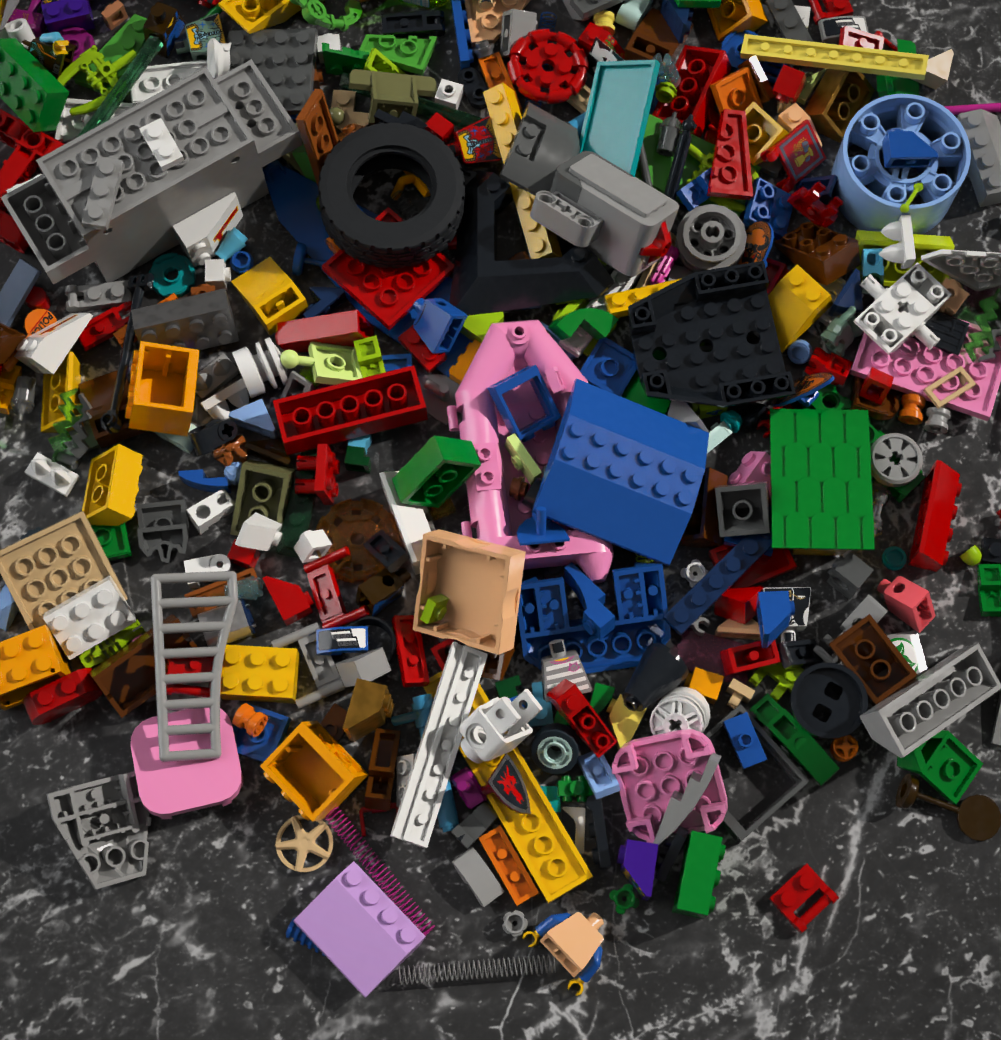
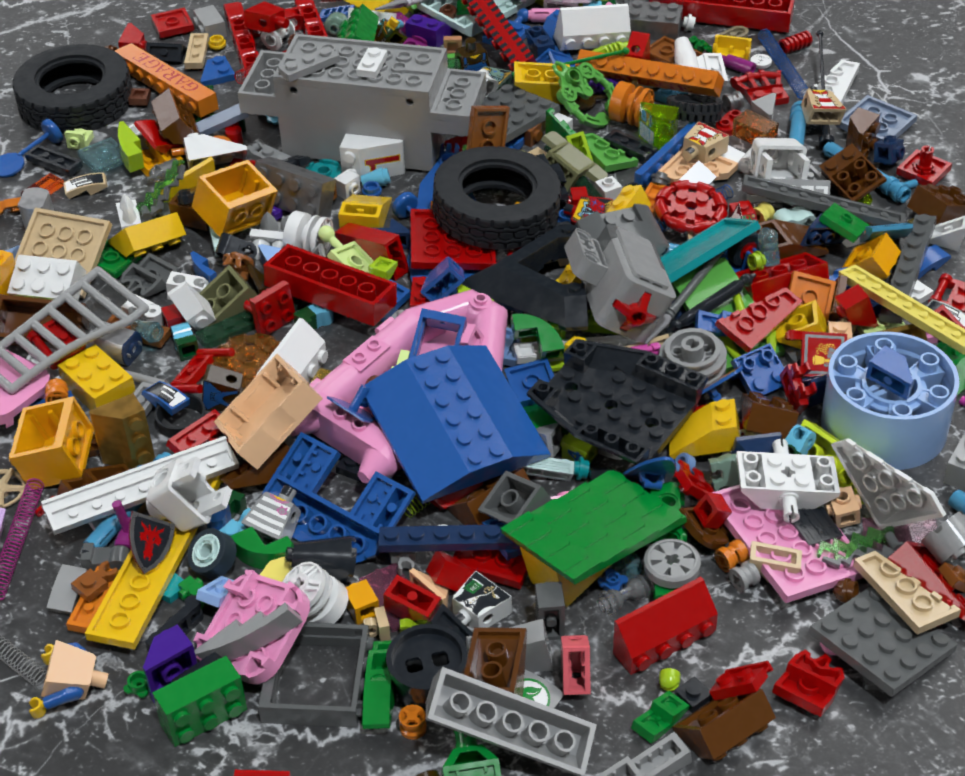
camera: 45 degrees right, 30 degrees down
(278, 567) = (184, 339): none -> leg
(289, 599) = (166, 359): red slope -> none
(311, 541) = (215, 336): white plate -> none
(364, 666) = (161, 416): light grey slope -> none
(386, 551) = (250, 366): black plate -> none
(434, 609) = (240, 416): lime plate -> none
(436, 471) = (332, 336): green brick -> none
(498, 857) = (93, 583): none -> dark orange plate
(517, 930) = (52, 633): light grey plate -> none
(574, 822) = (161, 617): white sticker -> none
(581, 717) = (248, 538): red slope -> none
(596, 616) = (339, 486): blue slope -> none
(669, 135) = (726, 278): dark grey piece -> none
(744, 740) = (340, 646): blue plate -> none
(773, 614) = (454, 580): blue slope -> none
(894, 558) = (603, 636): teal plate -> none
(904, 208) = (849, 400): lime hinge -> none
(904, 250) = (838, 429): white tile -> none

